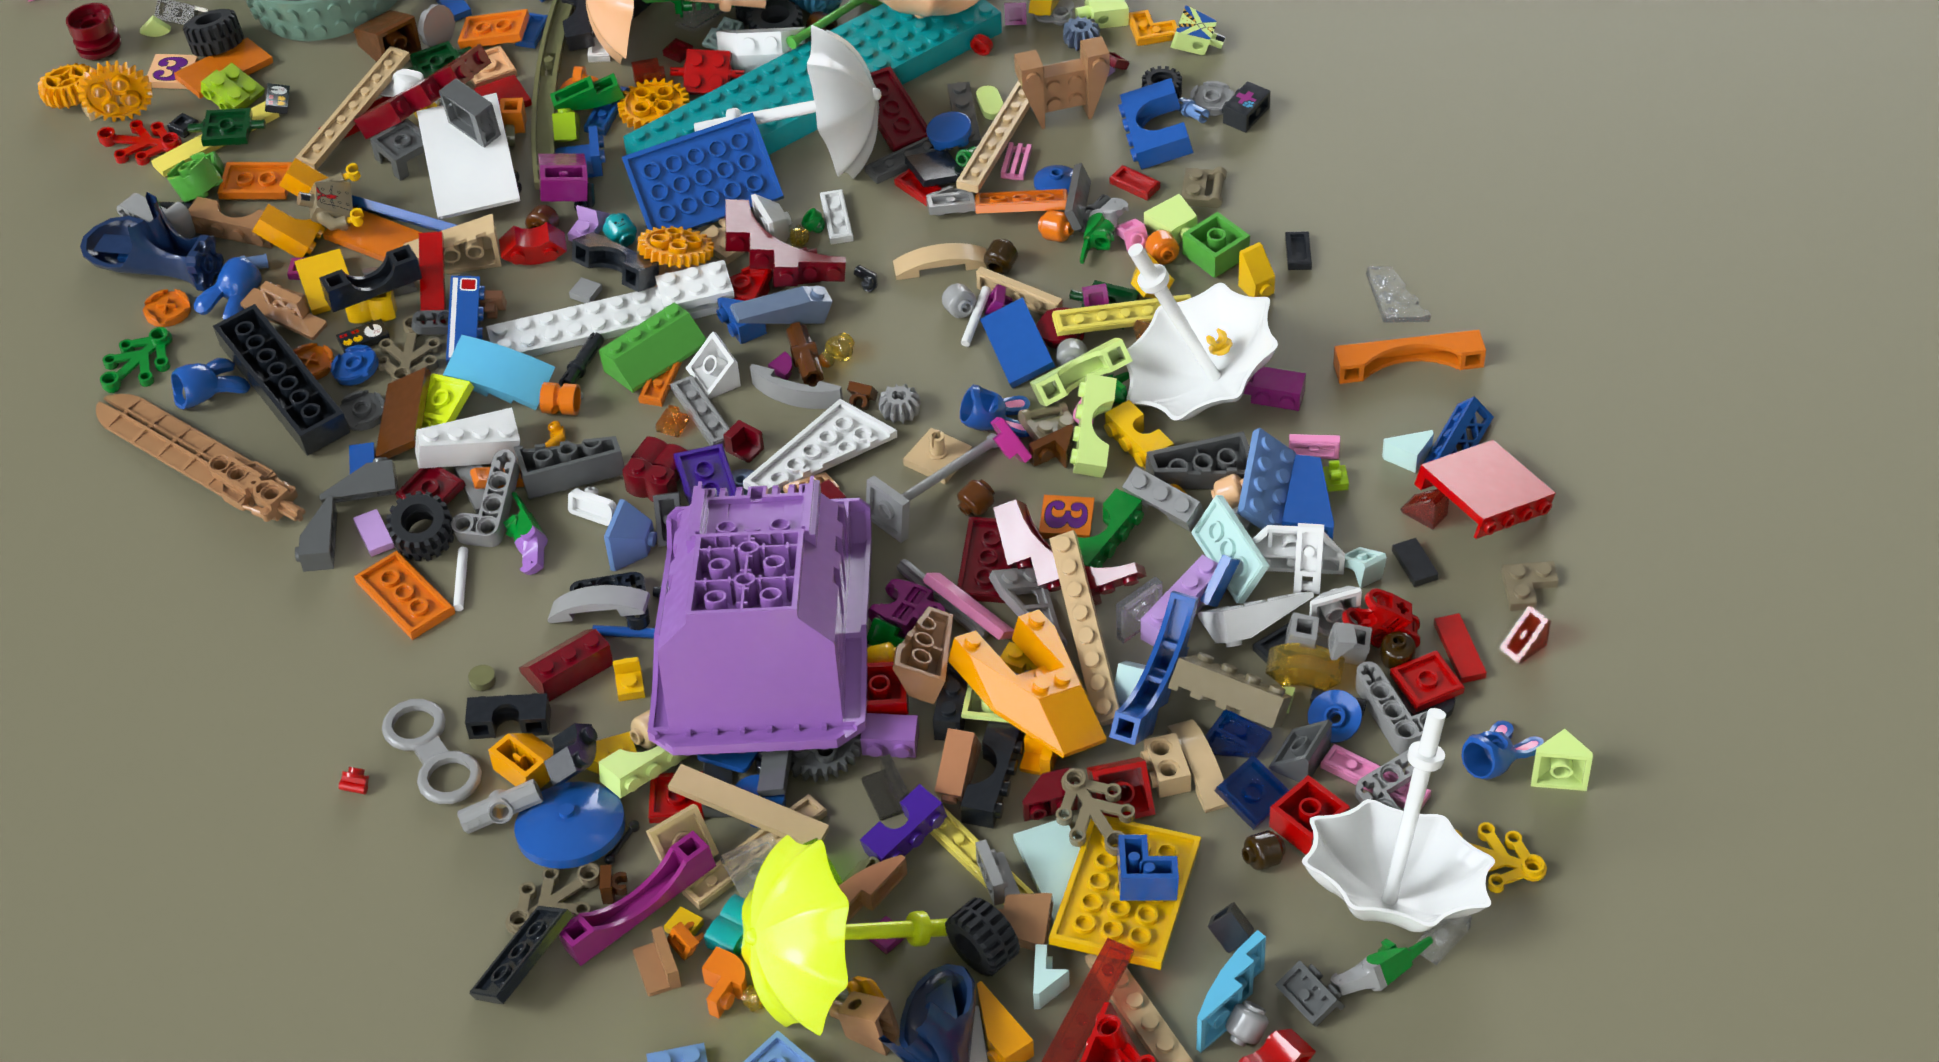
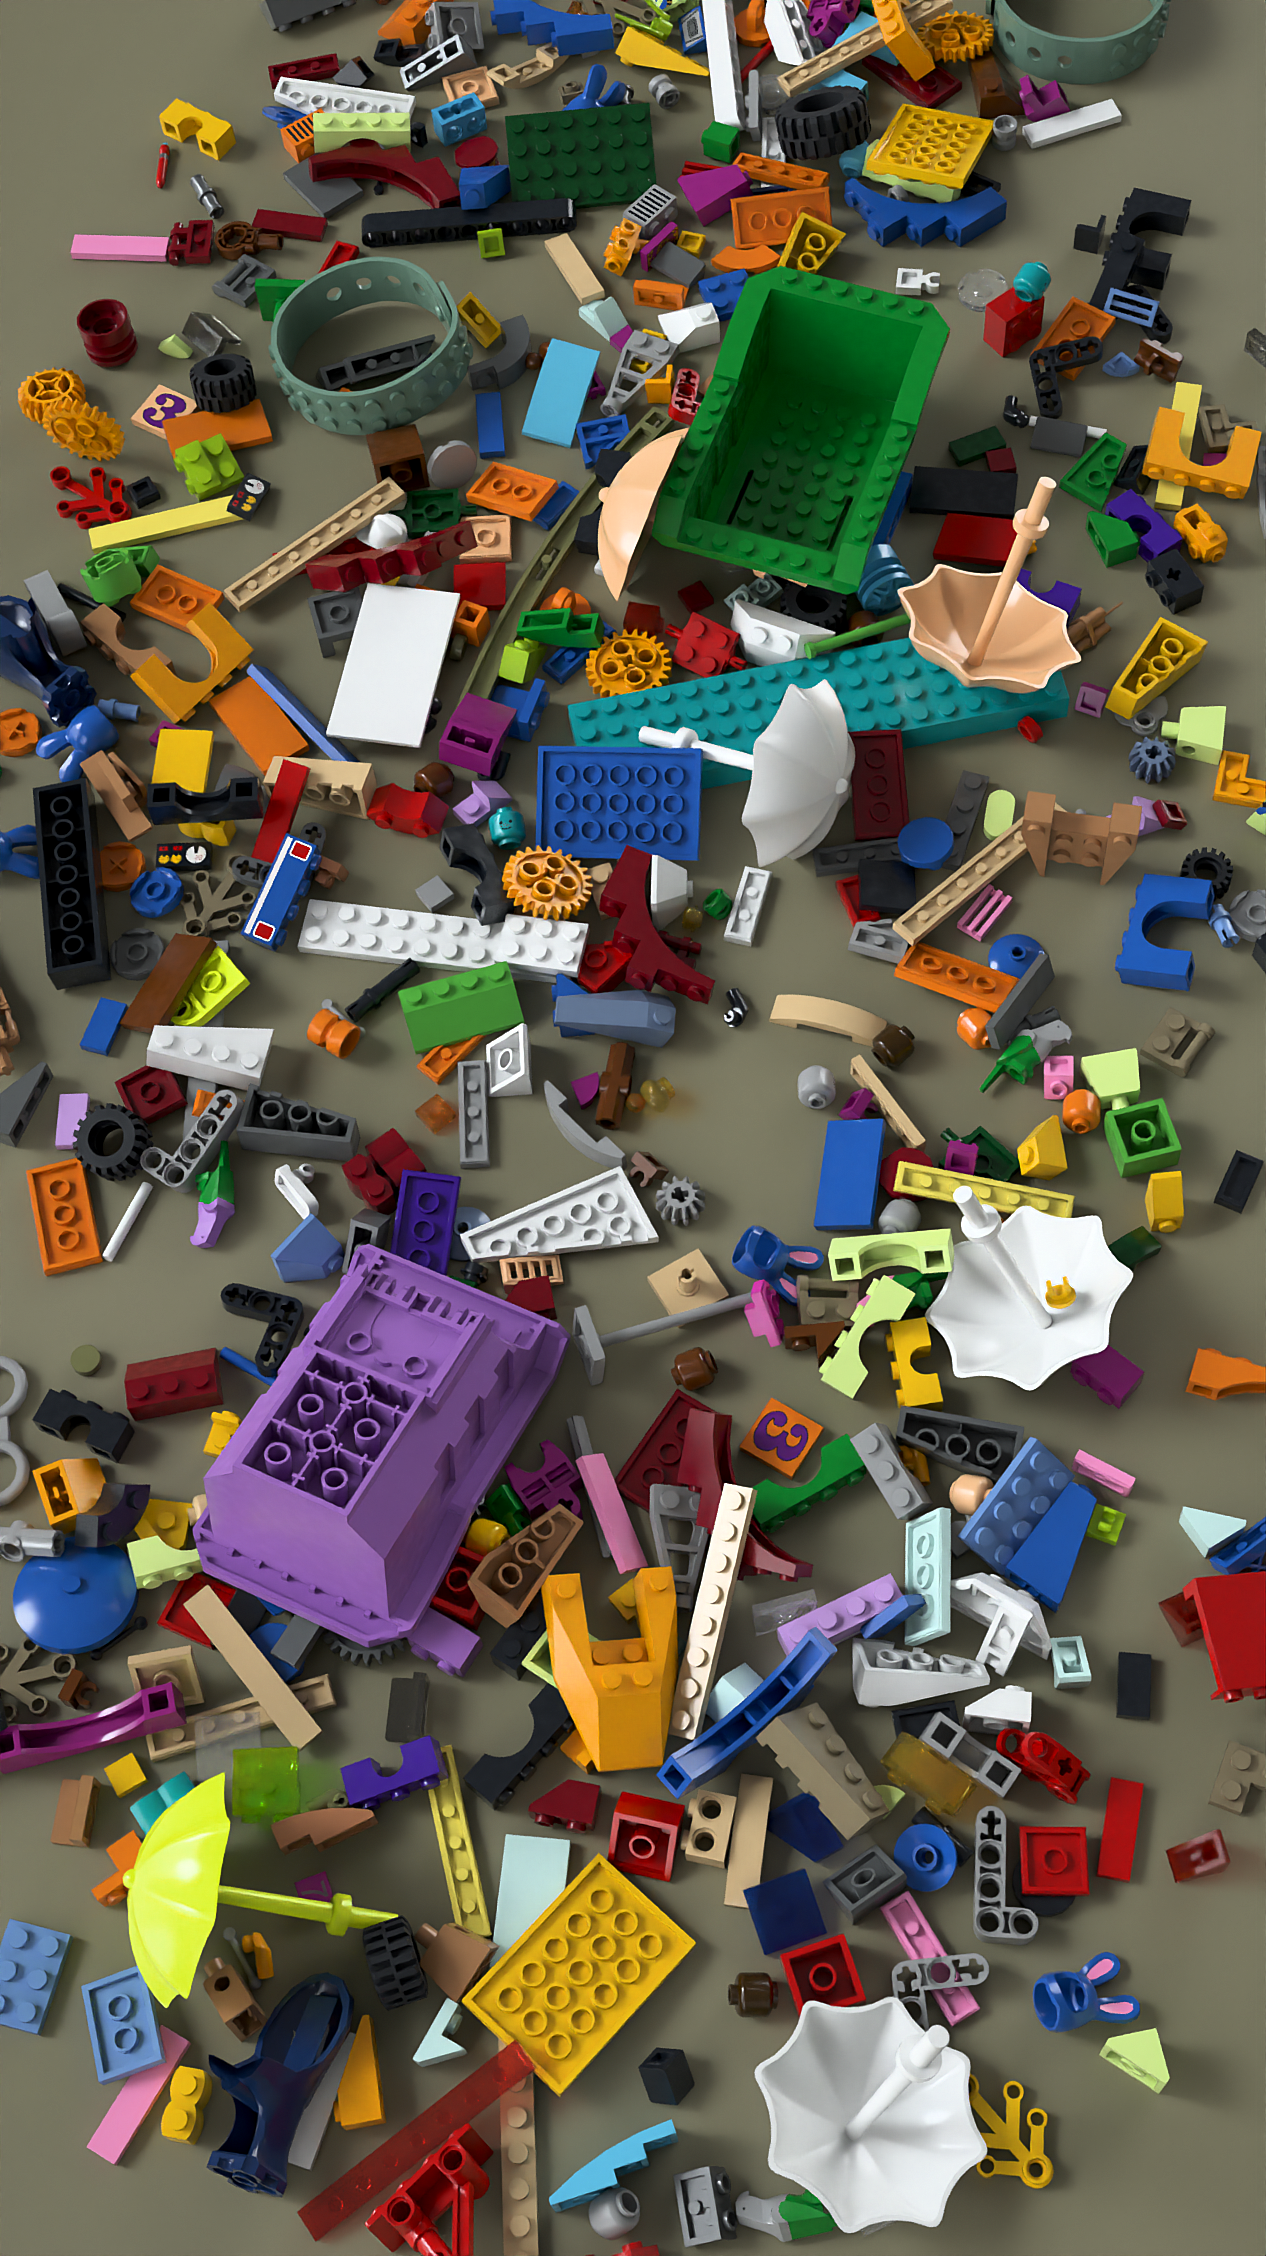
camera: 30 degrees right, 15 degrees up
(226, 127) = (177, 518): dark green plate -> none
(332, 201) = (225, 671): dark tan torso -> none
(368, 481) = (97, 1058): dark grey slope -> none
(470, 112) = (410, 617): dark grey window -> none
(499, 371) = (286, 971): medium azure slope -> none
(557, 434) = (310, 1079): light orange arm -> none
(599, 598) = (239, 1327): light grey slope -> none
(682, 939) = (110, 1799): orange tile -> none
(743, 441) = (492, 1176): dark red panel -> none
(957, 765) = (490, 1719): nougat slope -> none
(964, 155) = (925, 885): green pin -> none
(975, 316) = (825, 1115): white bar -> none
(995, 872) = (455, 1886): light grey bracket -> none
(1092, 808) = (593, 1854): dark tan plant -> none
(1134, 182) = (1103, 1000): red tile -> none
(1142, 875) = (590, 1978): blue brick -> none
(1341, 639) = (976, 1772): light grey slope -> none
(1397, 649) = (1036, 1796): dark brown head -> none

